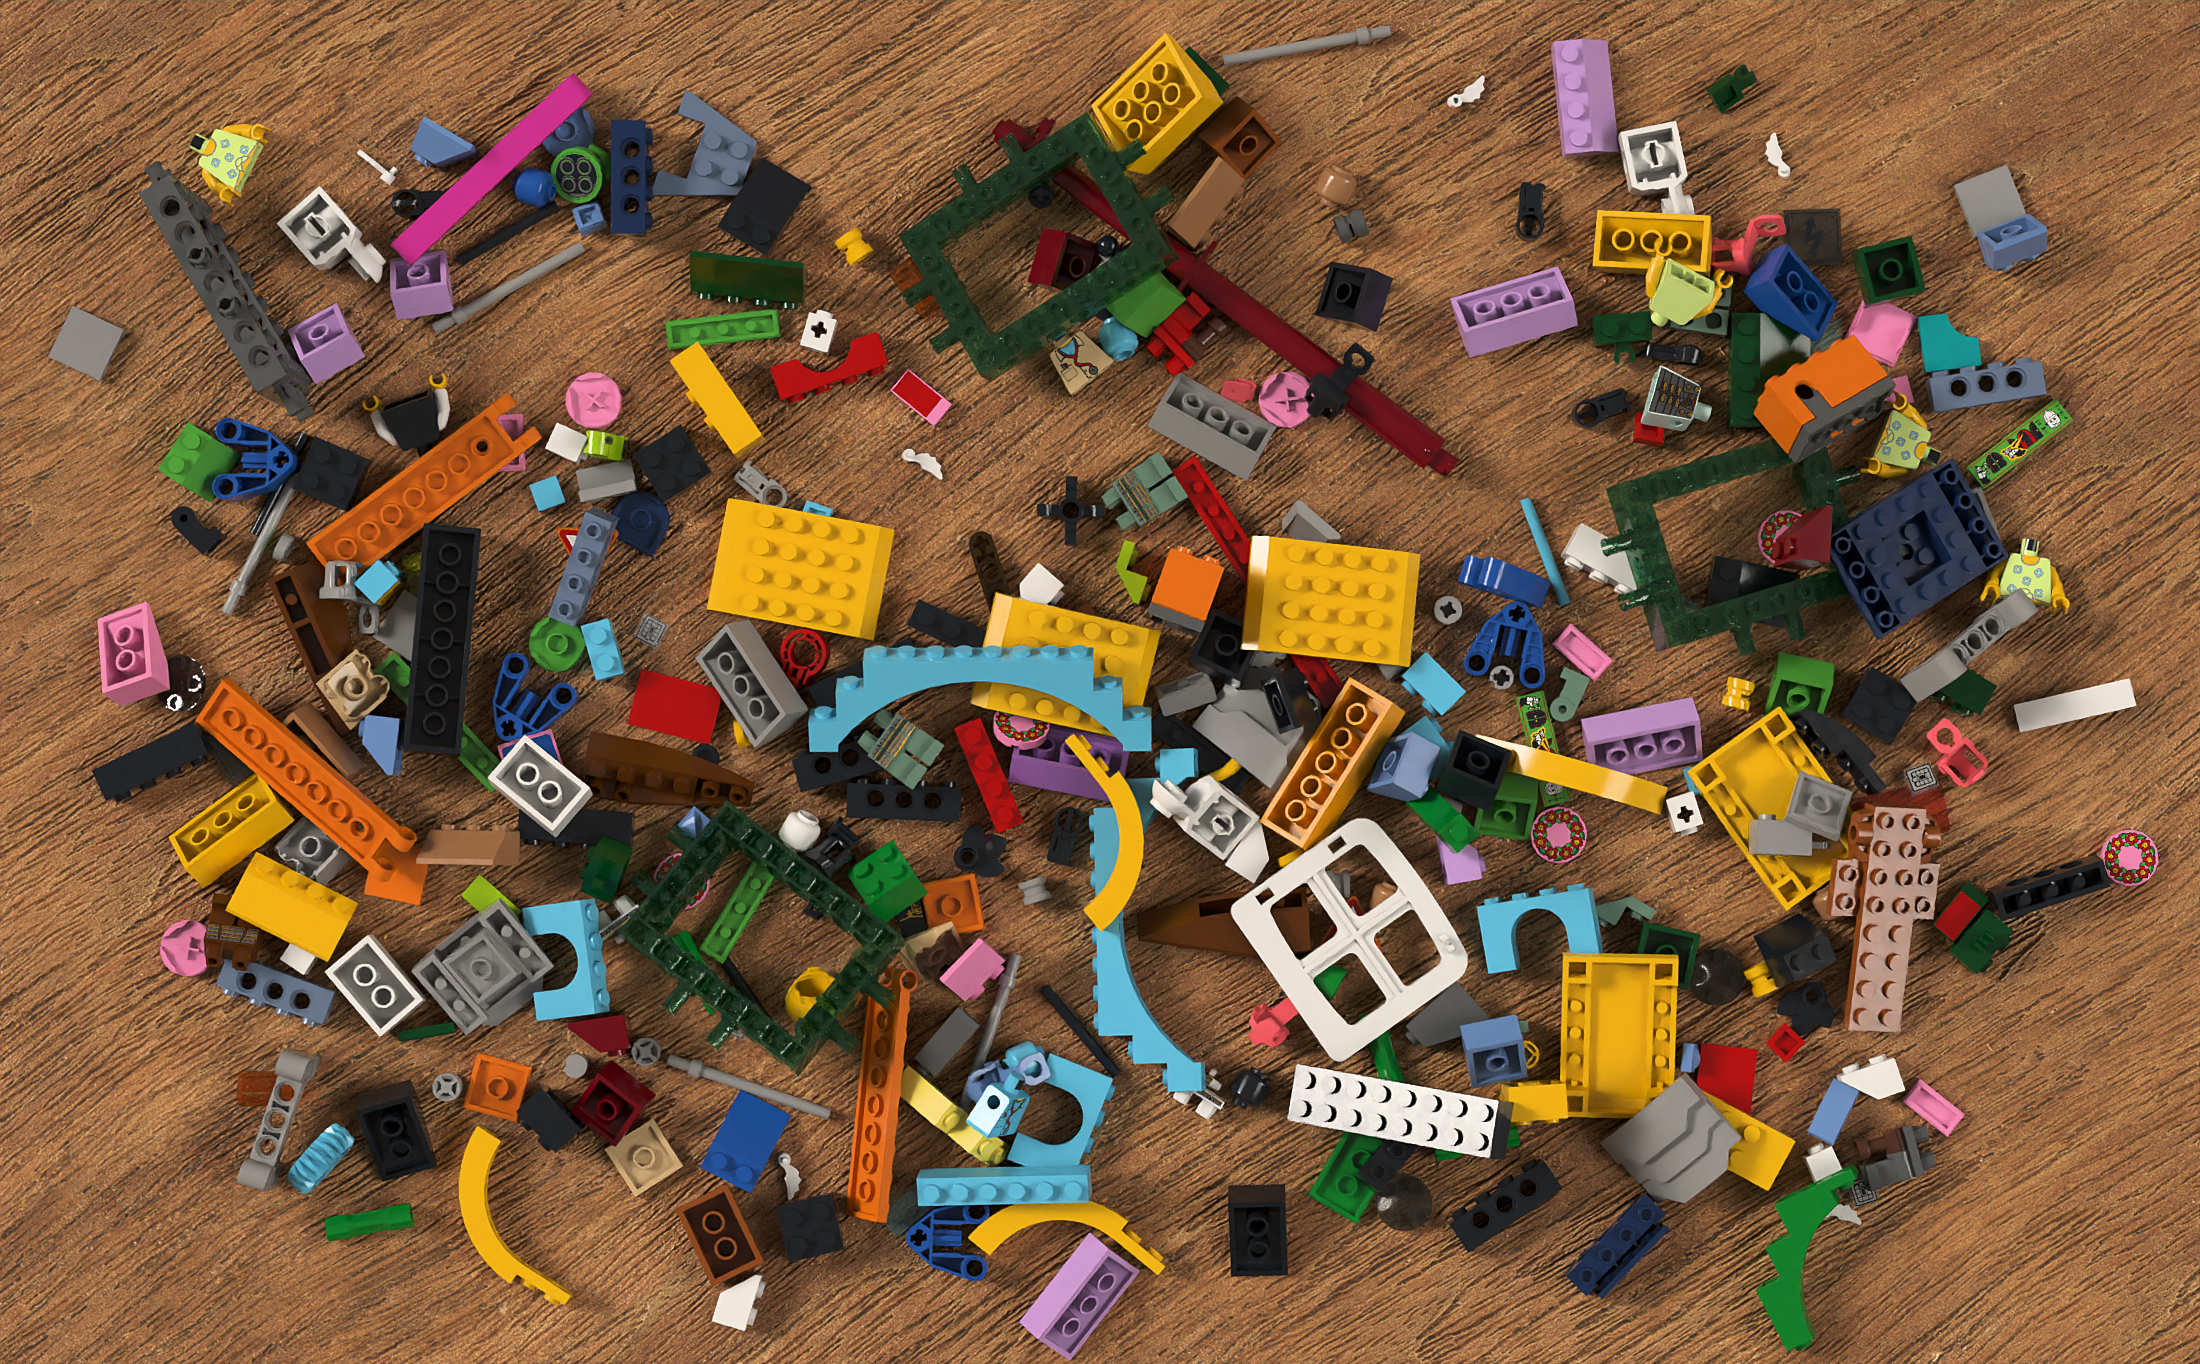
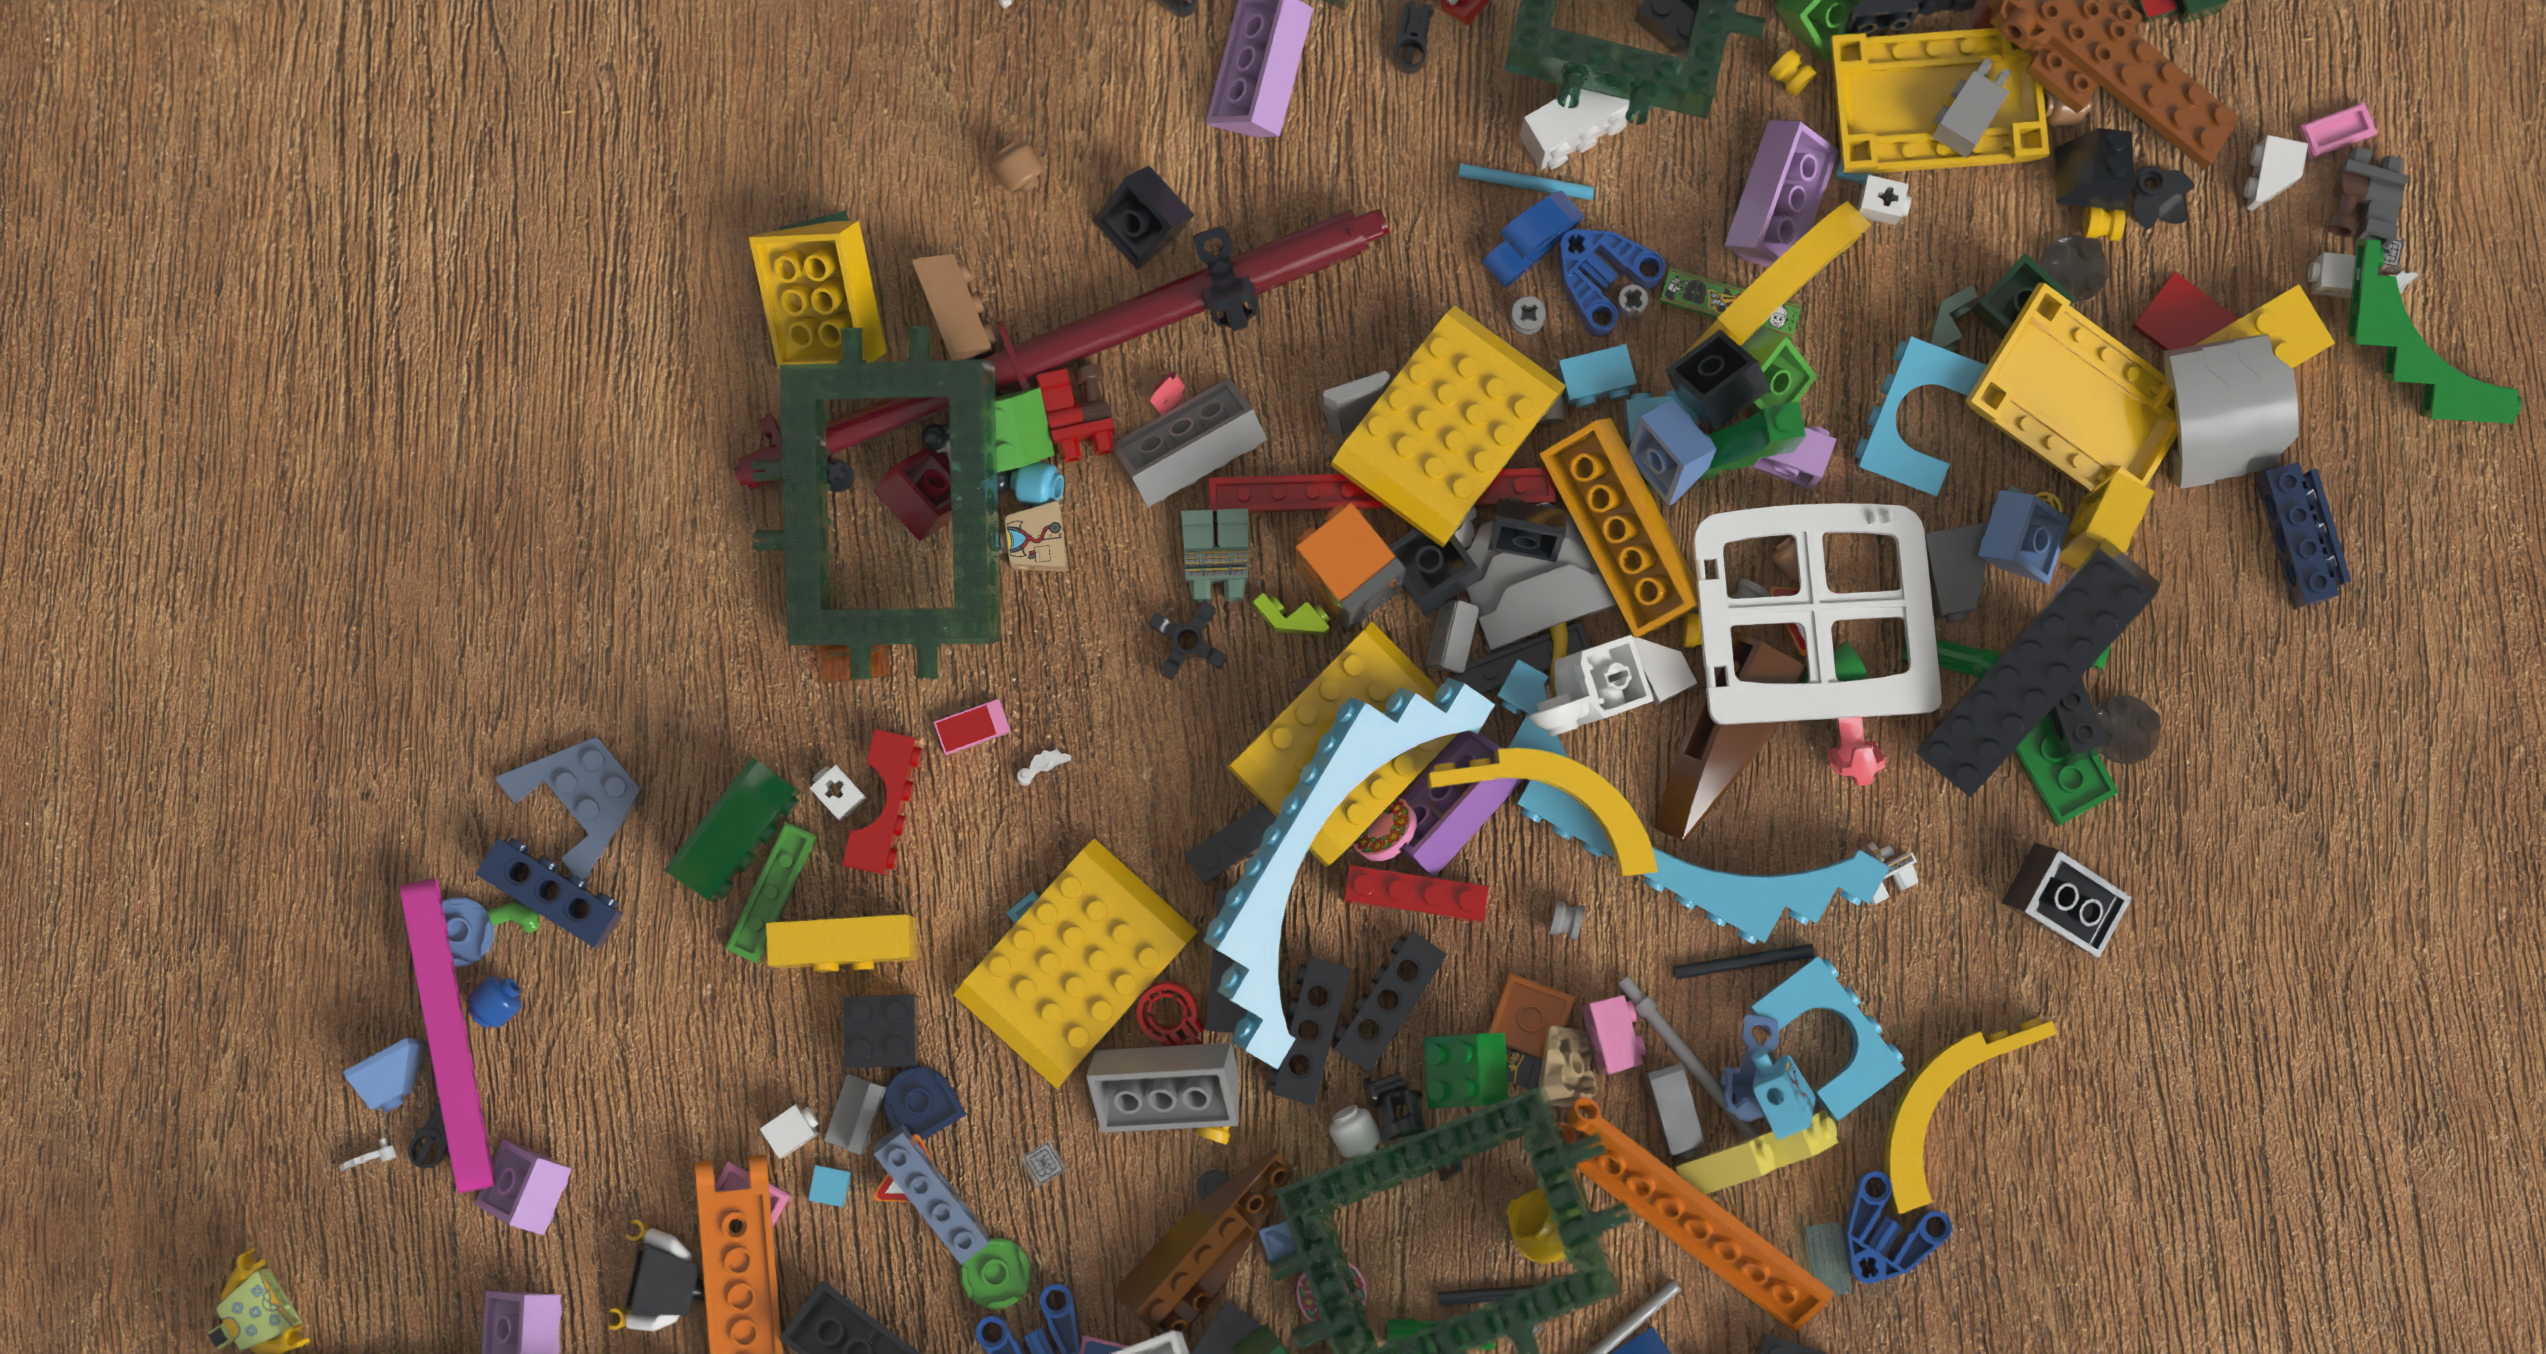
camera: 55 degrees left, 5 degrees down
(329, 236) = (408, 1254): white brick -> none
(460, 314) = (581, 1164): light grey bar -> none
(508, 233) = (527, 1055): black bar -> none
(578, 174) = (511, 946): tile -> none
(589, 218) = (565, 962): medium blue tile -> none
(594, 400) = (761, 1076): bright pink tile -> none
(603, 650) = (1033, 1226): medium azure brick -> none
(606, 446) = (817, 1091): lime leg -> none
(675, 707) = (1140, 1186): red tile -> none
(737, 913) = (1401, 1253): bright green tile -> none
(757, 484) = (957, 954): light grey piece -> none
(764, 208) = (670, 772): black slope -> none
(854, 247) = (770, 701): yellow wheel -> none
(891, 747) = (1320, 968): sand green hips -> none
(984, 850) = (1493, 948): black plate -> none
(999, 581) = (1213, 775): dark brown beam -> none
(1004, 1185) = (1867, 1140): medium azure brick -> none
(1020, 1051) = (1731, 1038): medium azure head -> none
(1041, 586) = (1248, 718): white slope -> none
(1062, 841) = (1531, 859): black piece -> none
(1079, 1296) = (2029, 1133): lavender slope -> none
(1240, 137) = (903, 231): dark orange slope -> none
(1249, 1088) = (1910, 818): black head -> none
(1283, 399) = (1206, 351): bright pink tile -> none
(1357, 224) = (1068, 176): dark grey wheel -> none
(1360, 35) = (878, 52): light grey bar -> none
(1545, 1187) = (2194, 572): black brick -> none
(1558, 835) = (1830, 341): tile -> none
(1566, 703) = (1691, 243): sand green leg -> none
(1582, 652) = (1653, 206): bright pink tile -> none
(1690, 1057) = (2144, 342): medium blue tile -> none
(1784, 1042) = (2184, 239): red plate -> none
(1818, 806) = (1961, 56): light grey tile -> none
(1833, 1112) = (2285, 232): medium blue slope -> none

